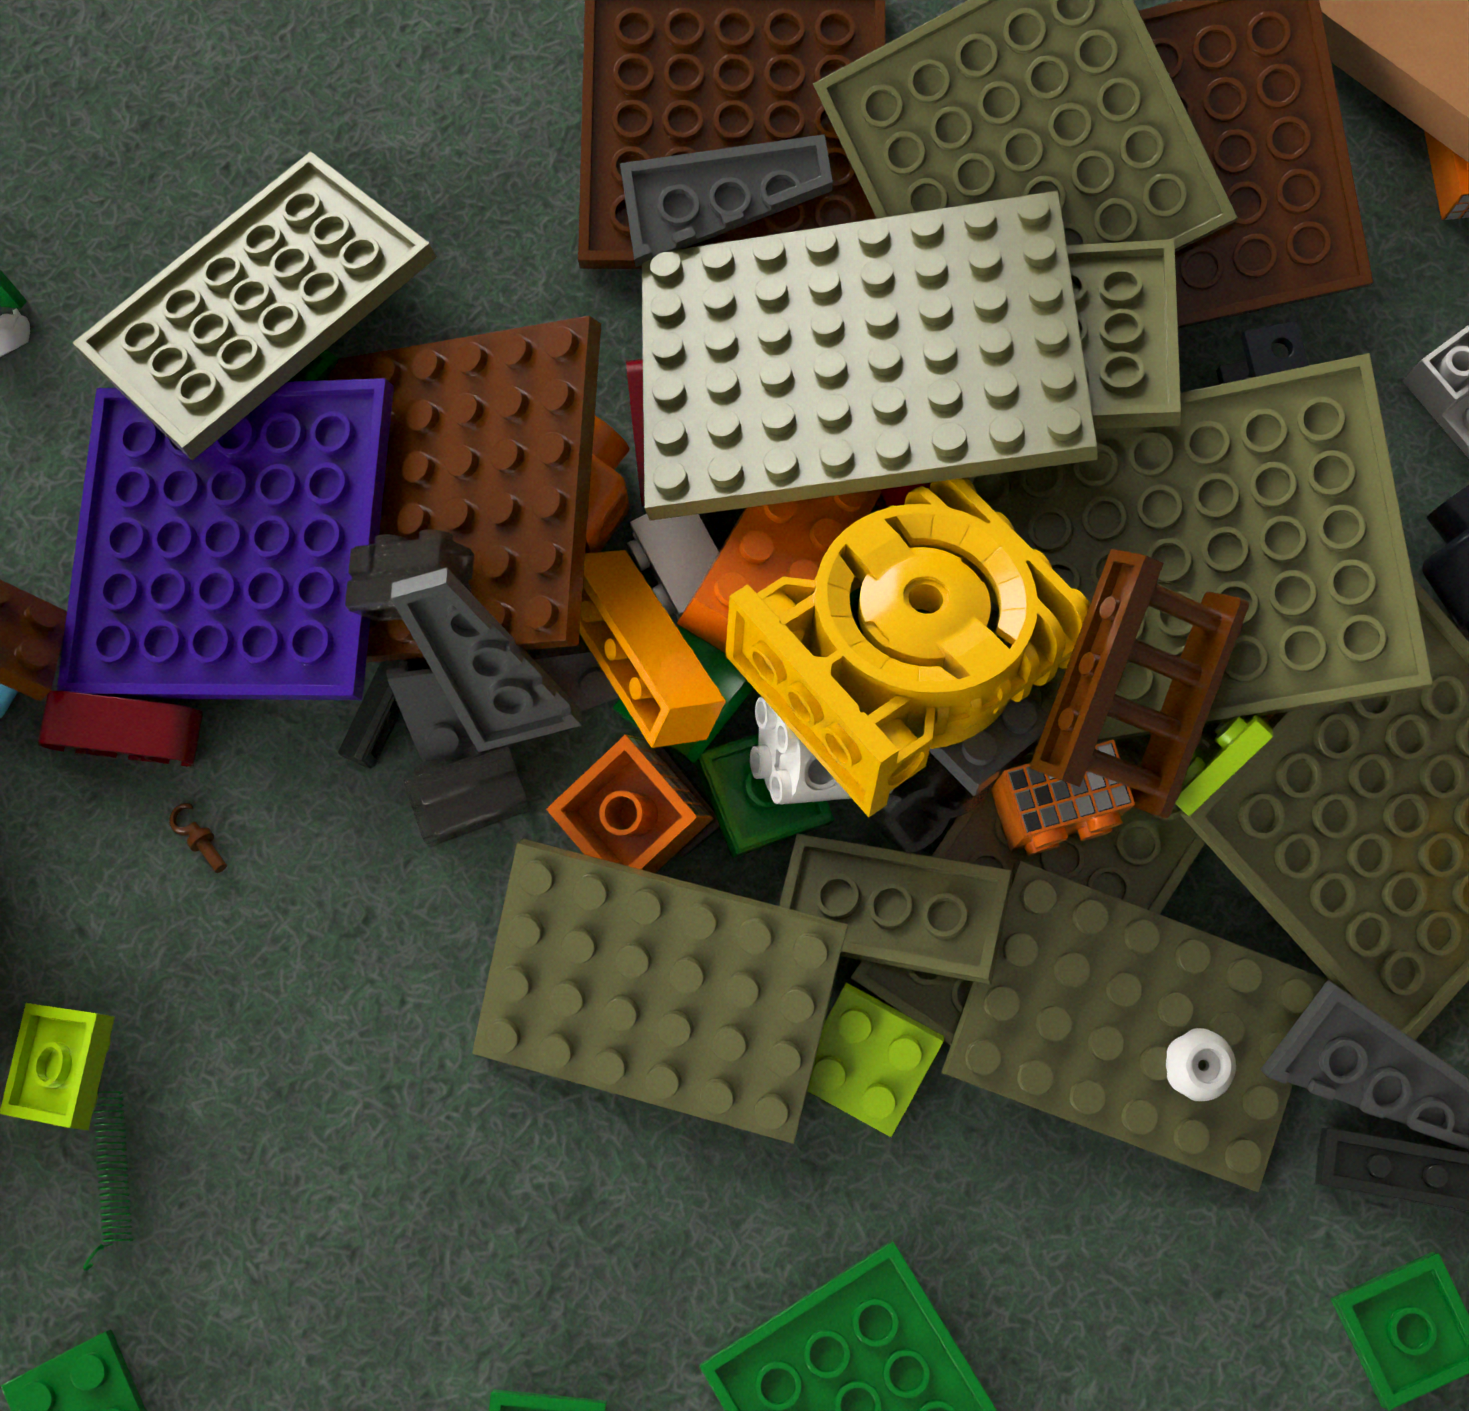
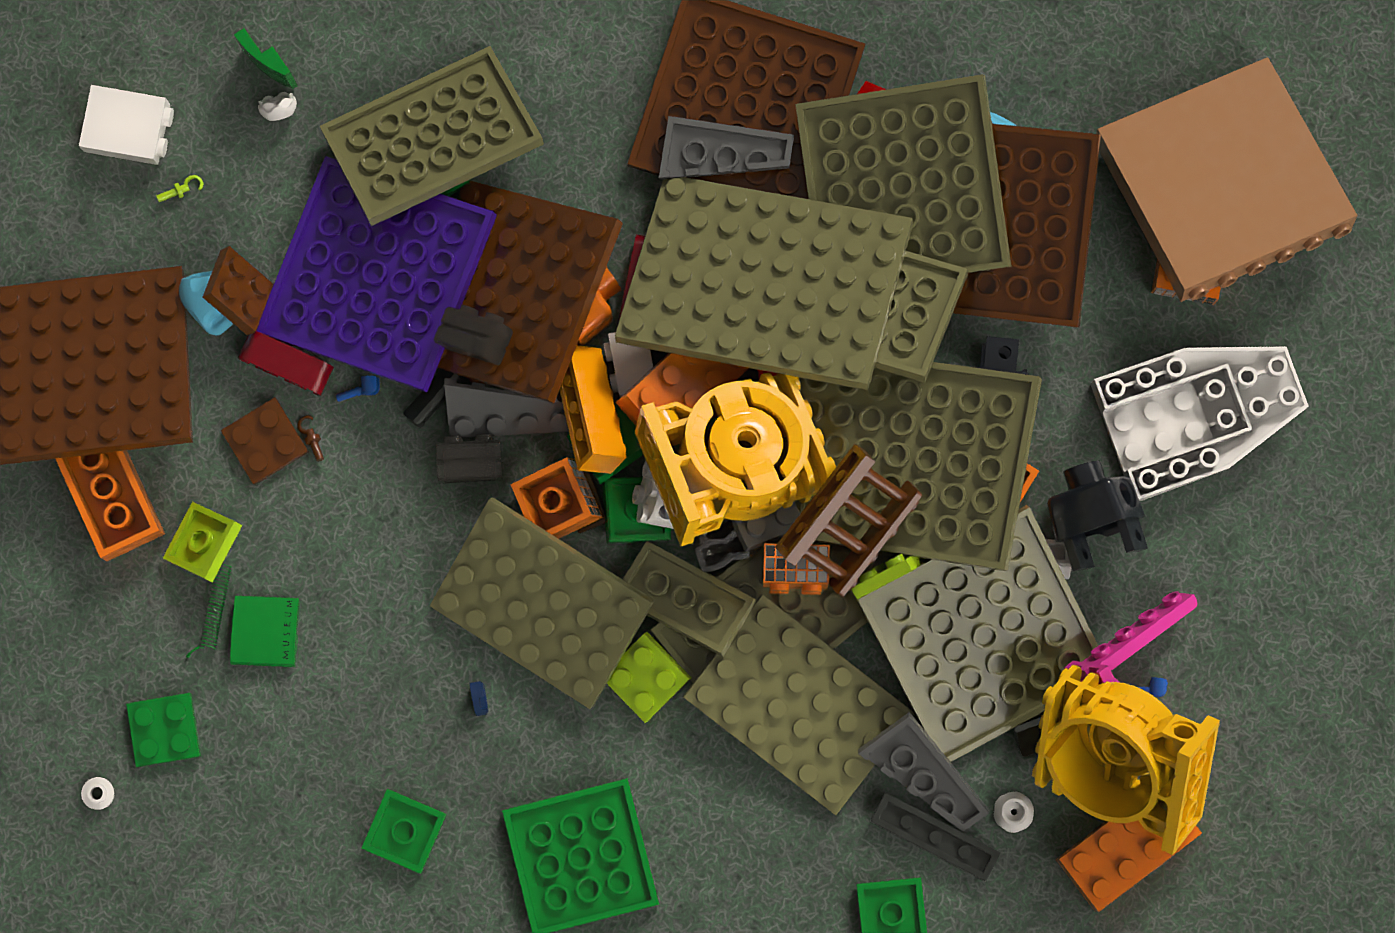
camera: 20 degrees right, 5 degrees up
(121, 866) = (264, 441): none -> reddish brown plate
(206, 1184) = (264, 631): none -> green slope
(270, 727) = (369, 386): none -> blue hand
(485, 675) = (497, 397): dark grey wing -> none
(597, 1177) = (479, 698): none -> dark blue tile
(1183, 1069) = (814, 730): white plate -> none

